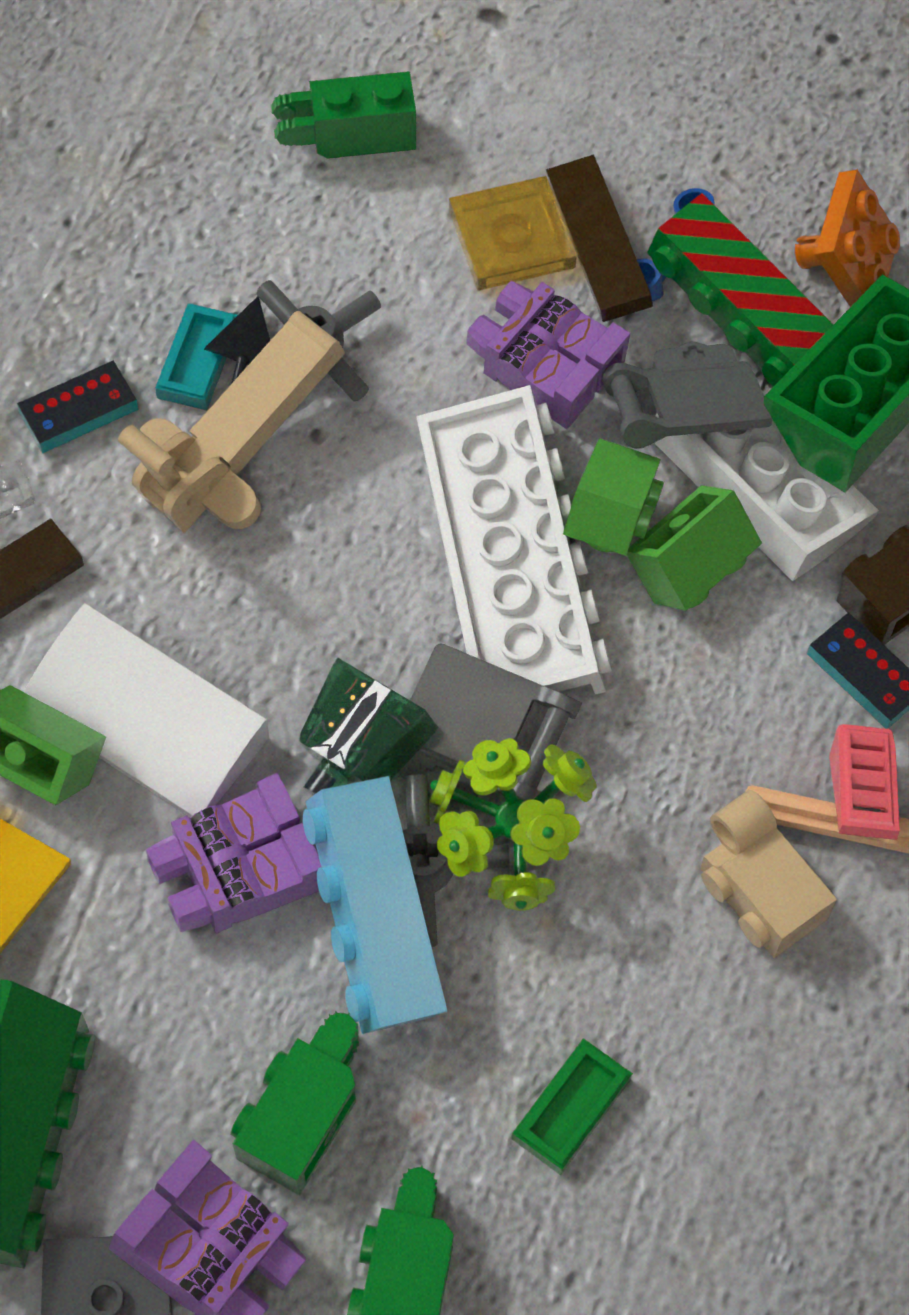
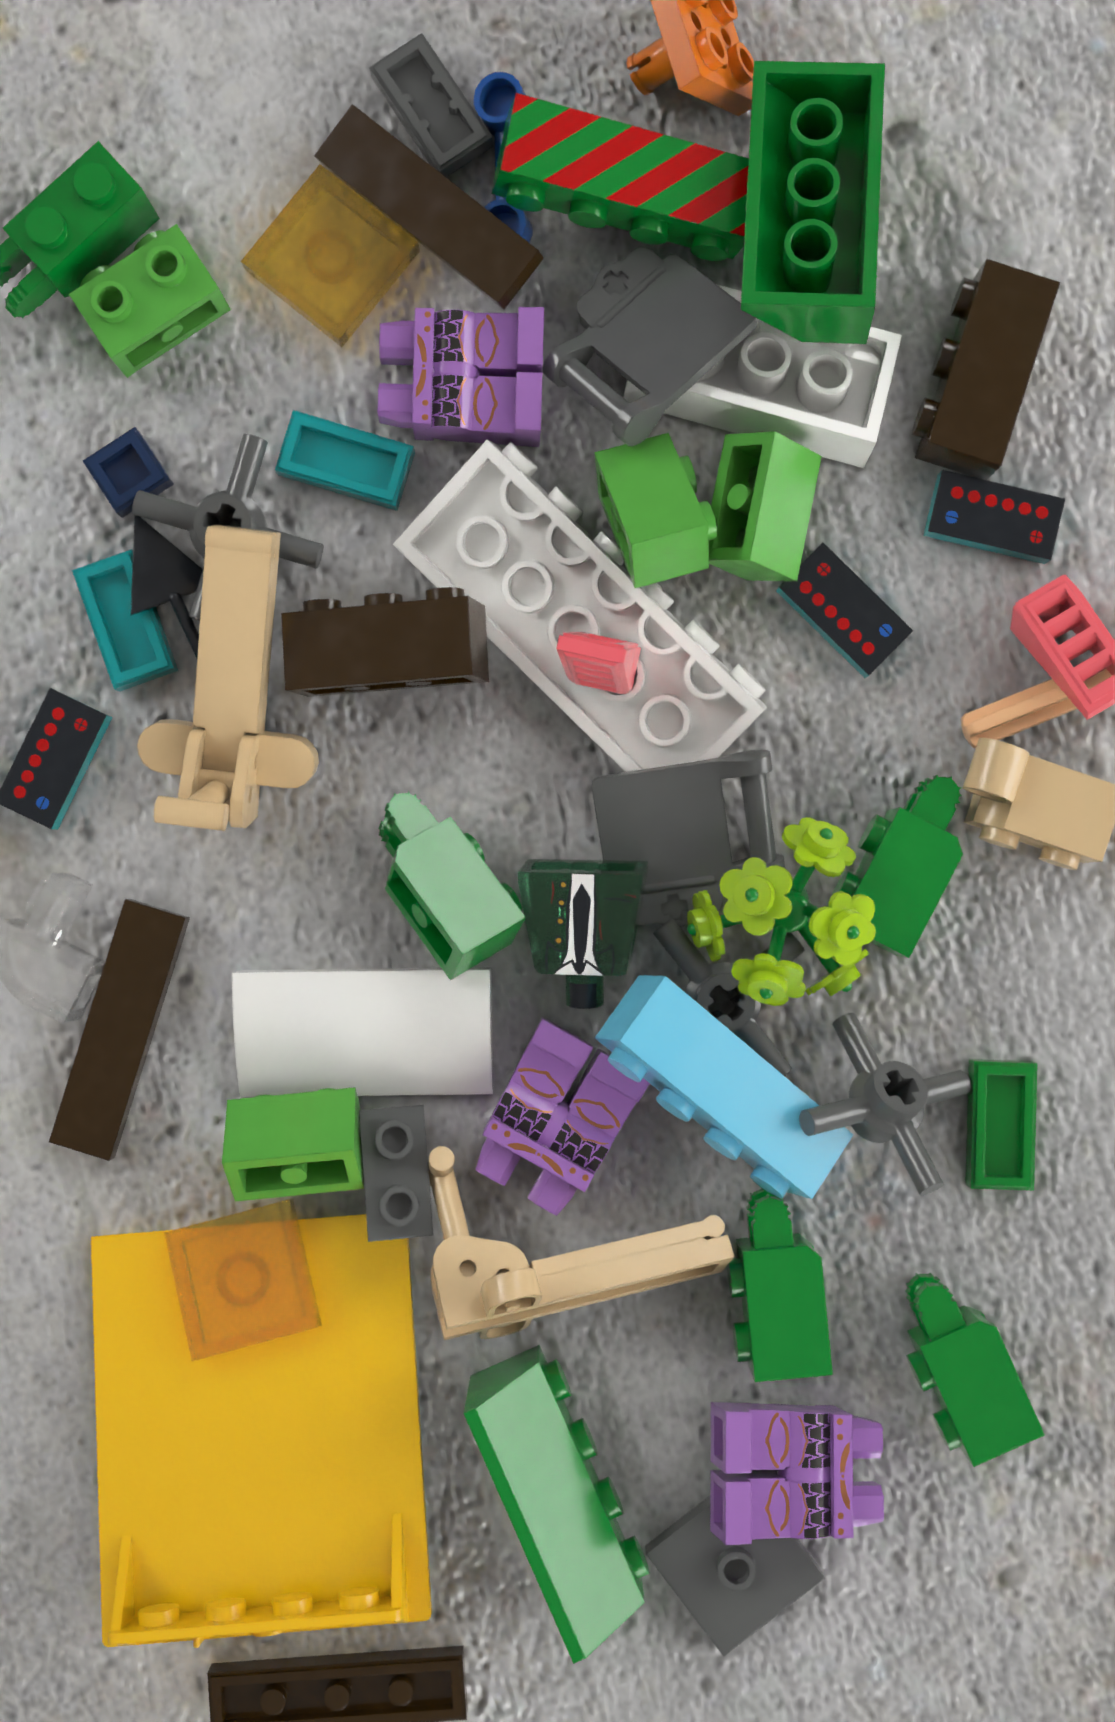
camera: 30 degrees left, 25 degrees up
(85, 813) = (395, 1173): none -> dark grey hinge
(90, 934) = (497, 1293): none -> tan piece
(275, 264) = (125, 469): none -> dark blue tile
(279, 647) = (446, 887): none -> hinge
(361, 469) = (385, 644): none -> dark brown brick
(370, 183) = (149, 300): none -> bright green brick
(425, 354) = (345, 460): none -> teal tile
(490, 1008) = (886, 1103): none -> dark grey bar
(500, 553) = (598, 661): none -> coral slope
(625, 858) = (907, 864): none -> green hinge
(645, 186) = (431, 106): none -> dark grey plate
(710, 662) = (844, 610): none -> black tile

